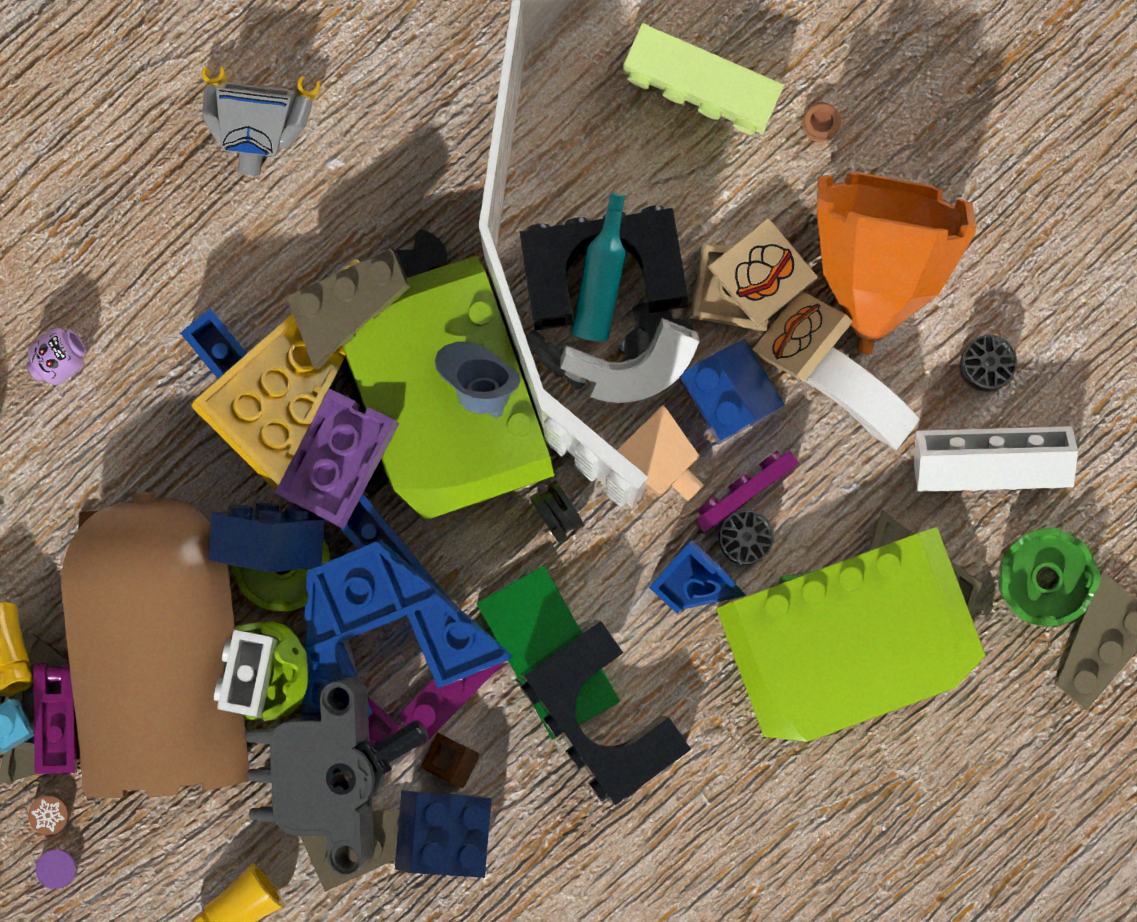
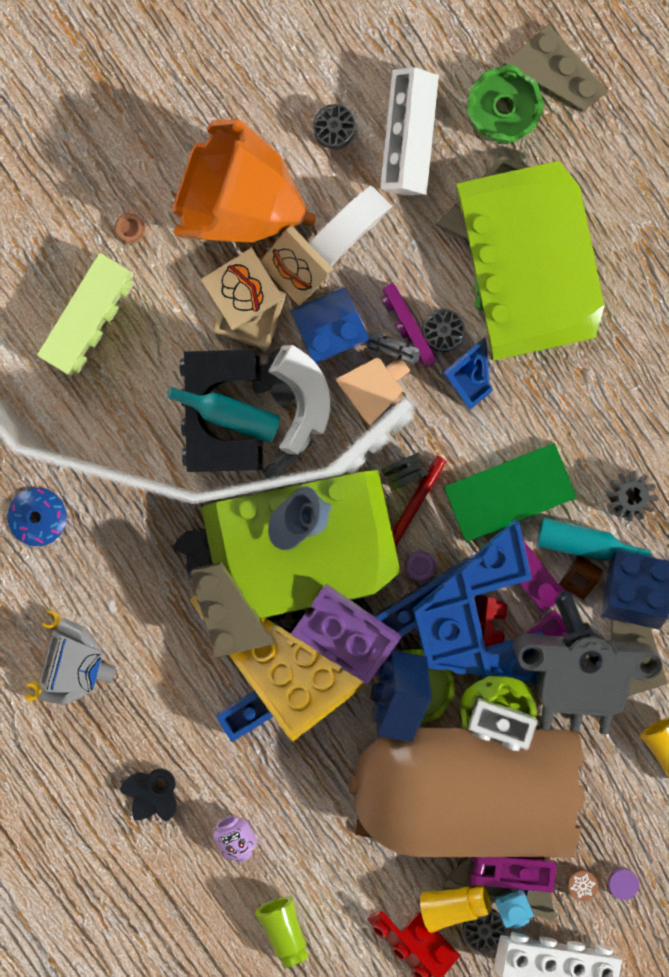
camera: 80 degrees left, 5 degrees up
(97, 240) = (149, 797): none -> black plate
(388, 638) = (487, 610): none -> red hips
(437, 548) = (420, 565): none -> medium lavender tile
(439, 72) = (52, 516): none -> blue dish
(497, 754) = (581, 541): none -> teal piece
(521, 533) = (417, 499): none -> red bar
(556, 684) = (605, 451): black arch -> none
(568, 823) = (641, 493): none -> dark grey gear
(713, 475) = (393, 348): none -> dark grey axle

